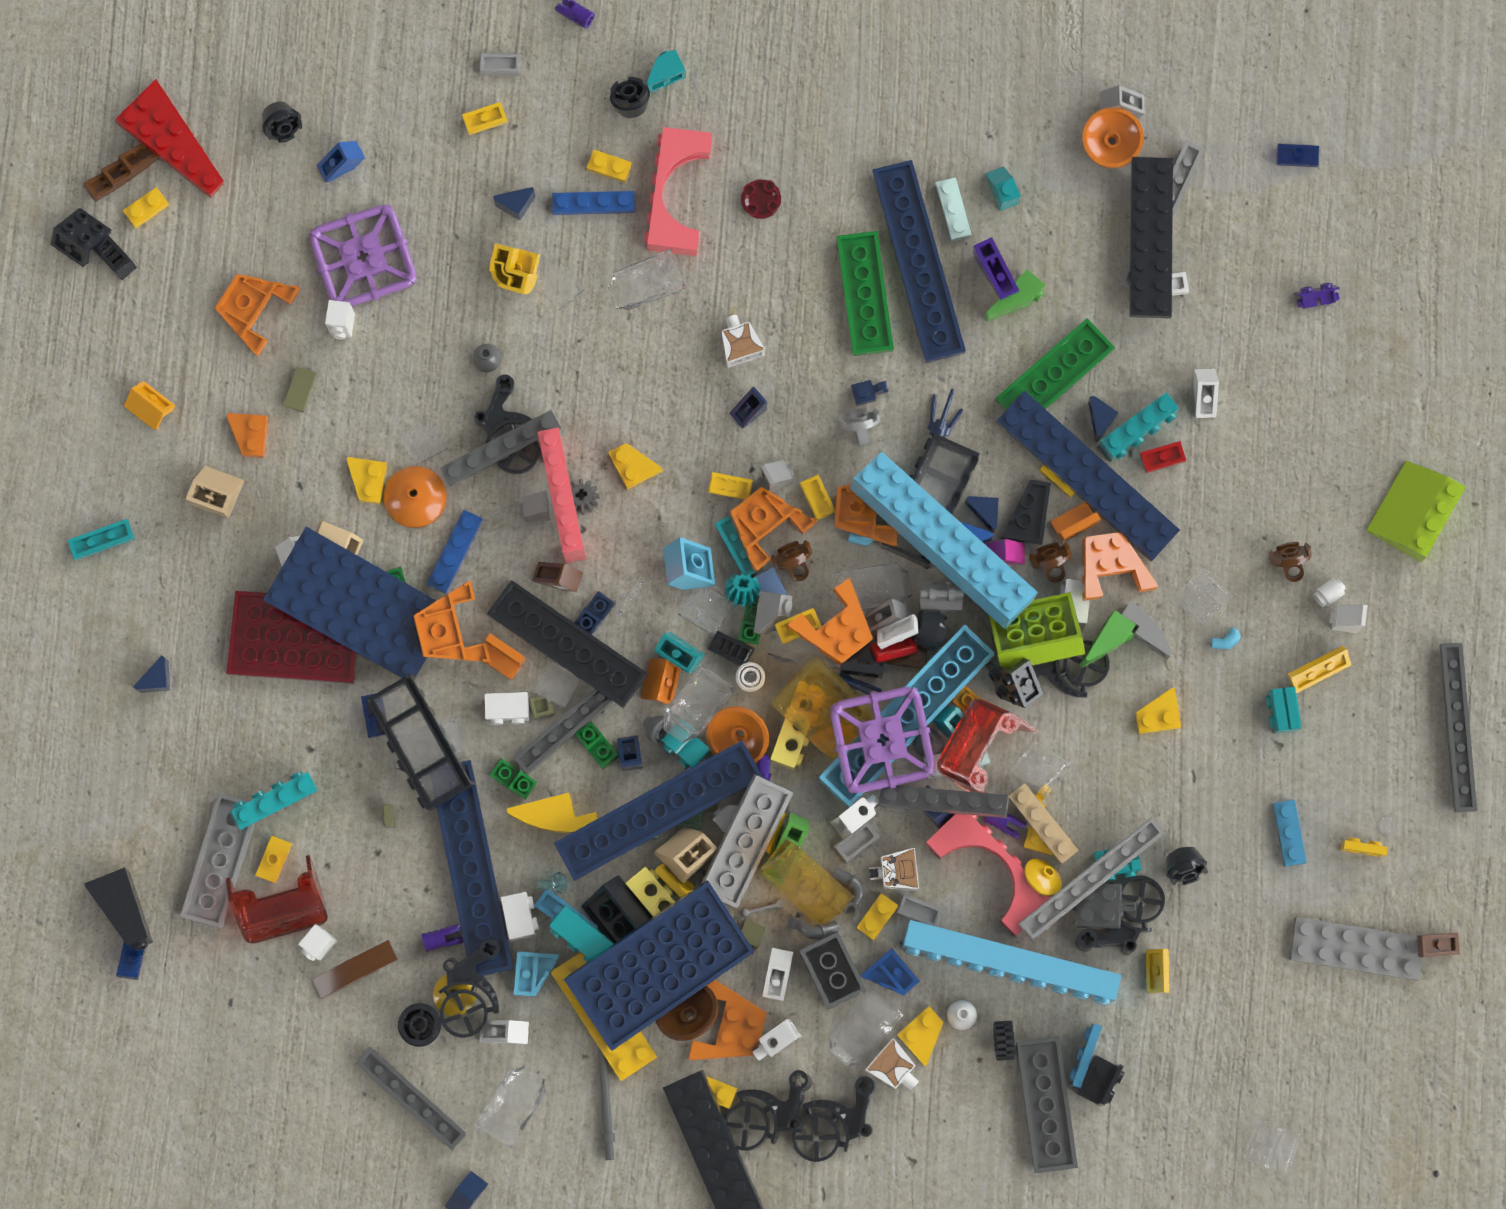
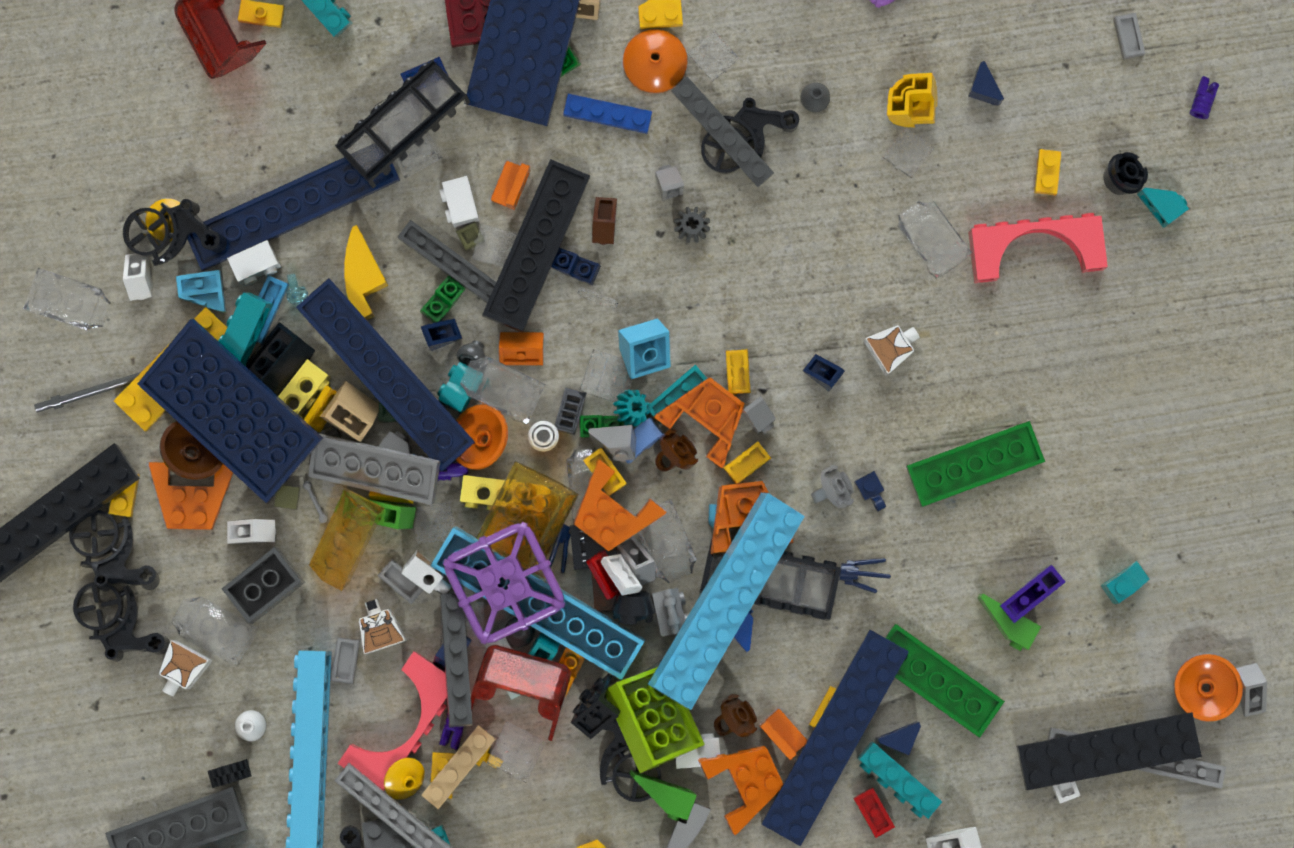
camera: 75 degrees right, 5 degrees up
(317, 943) = (184, 73): white brick -> none
(355, 969) = (169, 117): reddish brown slope -> none
(388, 816) = (326, 112): olive tile -> none
(411, 1098) = (55, 202): dark grey plate -> none
(419, 1024) = (125, 191): black cone -> none
(437, 939) = (215, 190): dark purple hinge -> none
(440, 630) = (520, 116): orange wing -> none
(484, 118) = (1066, 34): yellow plate -> none
(512, 778) = (391, 225): green slope -> none
(561, 495) = (722, 185): coral arch -> none
(593, 203) = (1004, 165): blue plate -> none
(633, 465) = (737, 269): yellow wing -> none
(679, 652) = (552, 359): teal brick -> none
(761, 198) = (1050, 334): dark red dish -> none
(784, 1033) = (184, 546): white torso -> none
(815, 932) = (298, 558): dark grey piece -> none
(853, 884) = (357, 587): dark grey piece -> none
(877, 917) = (330, 618): yellow plate -> none
(892, 973) = (276, 646): blue wing -> none
(918, 261) = (1023, 512): dark blue plate -> none
(922, 1034) = (222, 689): yellow wing -> none
(953, 209) = (1089, 536): light aqua plate -> none
(985, 510) = (773, 639): dark blue slope -> none
(1009, 551) = (734, 668): dark pink slope -> none
(1029, 517) = (777, 685): black wing -> none

